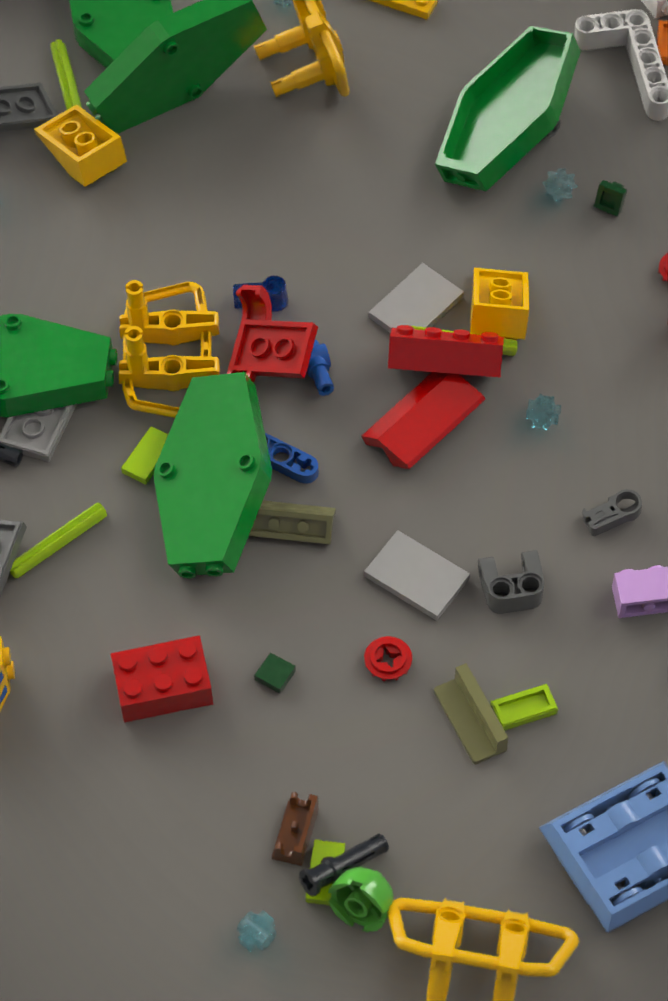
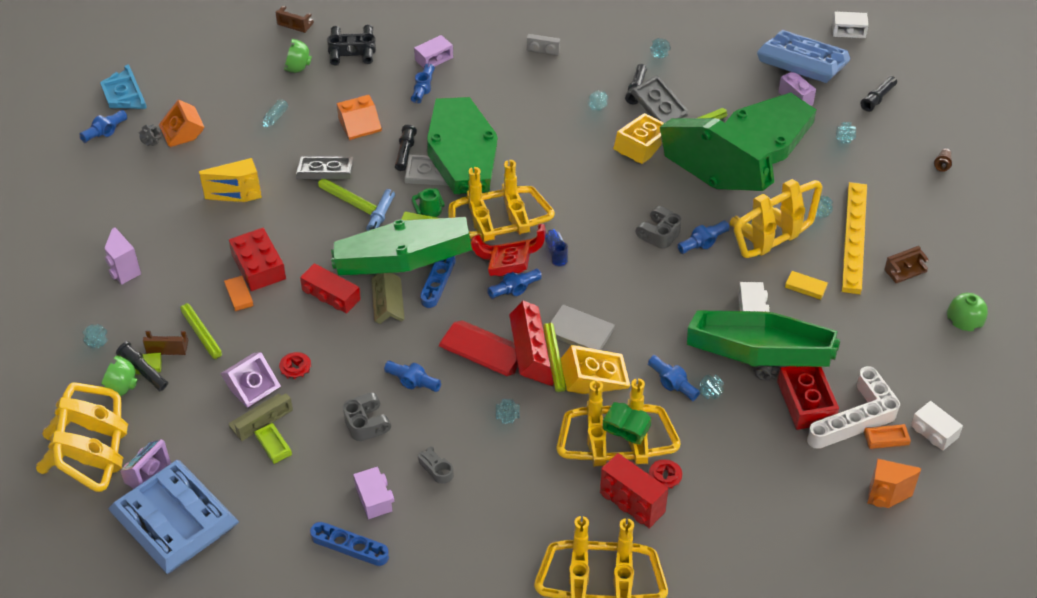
camera: 75 degrees right, 10 degrees down
(100, 873) = (121, 258): none -> lavender slope
(118, 433) = (430, 202): none -> green piece
(118, 504) = (378, 216): none -> medium blue pin
(217, 718) = (238, 293): none -> orange tile
(253, 589) = (330, 288): none -> red brick
(268, 162) = (666, 230): none -> dark grey piece
(275, 673) = (275, 313): dark green tile -> none
(281, 779) = (201, 331): none -> lime axle
(295, 128) = (703, 237): none -> blue pin
(402, 718) = (251, 379): none -> lavender slope
(410, 48) = (806, 285): none -> yellow tile
(417, 575) = (361, 369): light grey tile -> none
(428, 107) = (752, 297): none -> white brick
(451, 512) = (412, 376): none -> blue pin
(531, 221) = (673, 378): none -> blue pin
(541, 871) = (146, 463): none -> lavender slope
(605, 93) = (806, 394): none -> red brick
(610, 197) = (715, 420): dark green tile -> none
(616, 276) = (626, 422): none -> green brick
(616, 280) = (597, 435): none -> yellow piece

